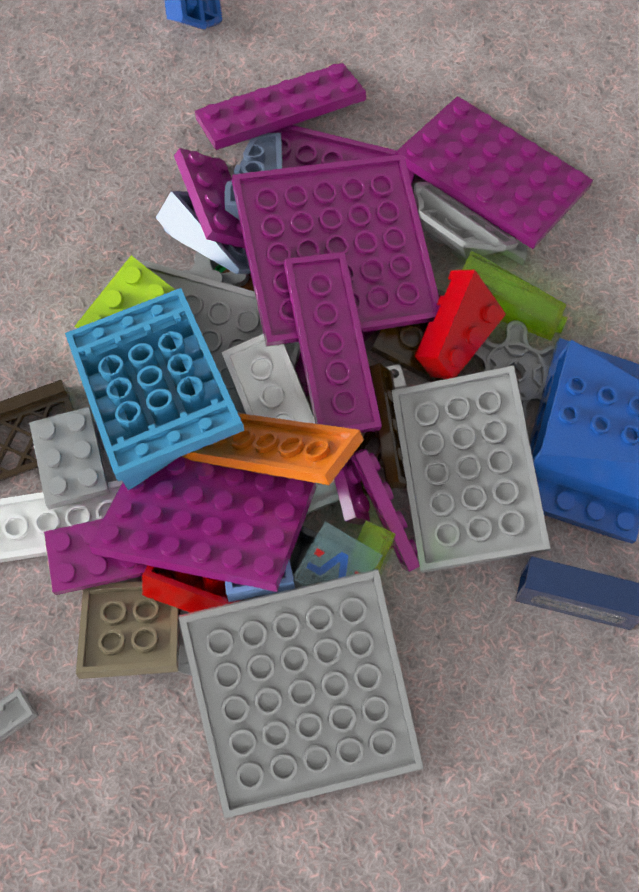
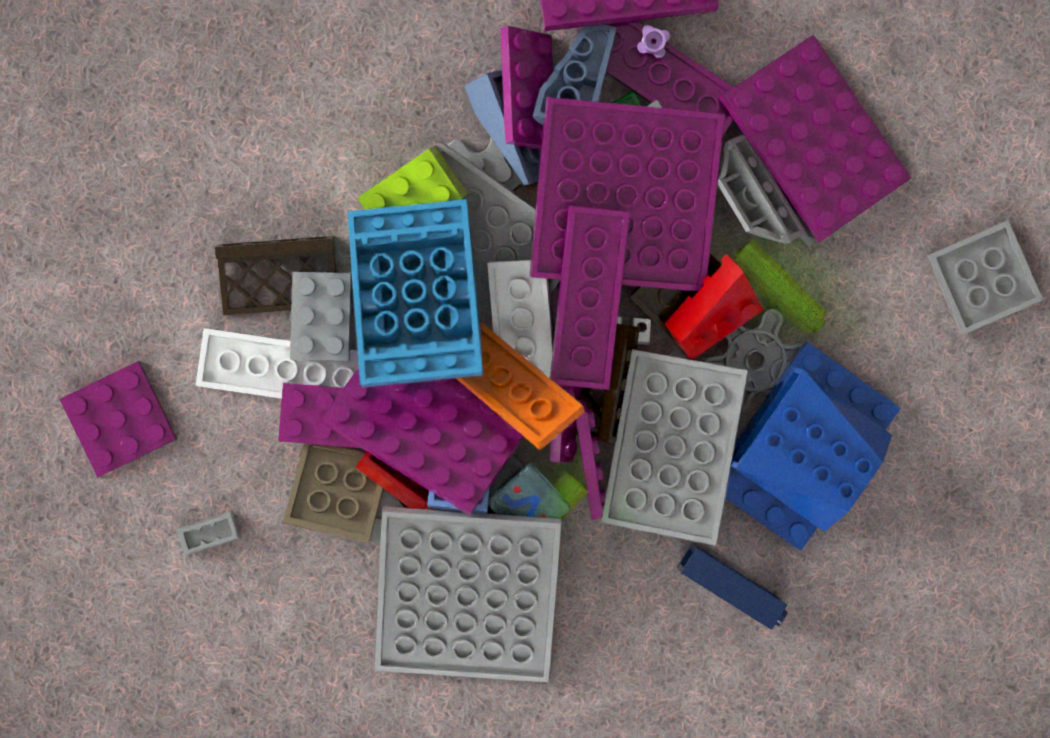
camera: 15 degrees right, 20 degrees up
(314, 127) = (653, 33): none -> lavender plate

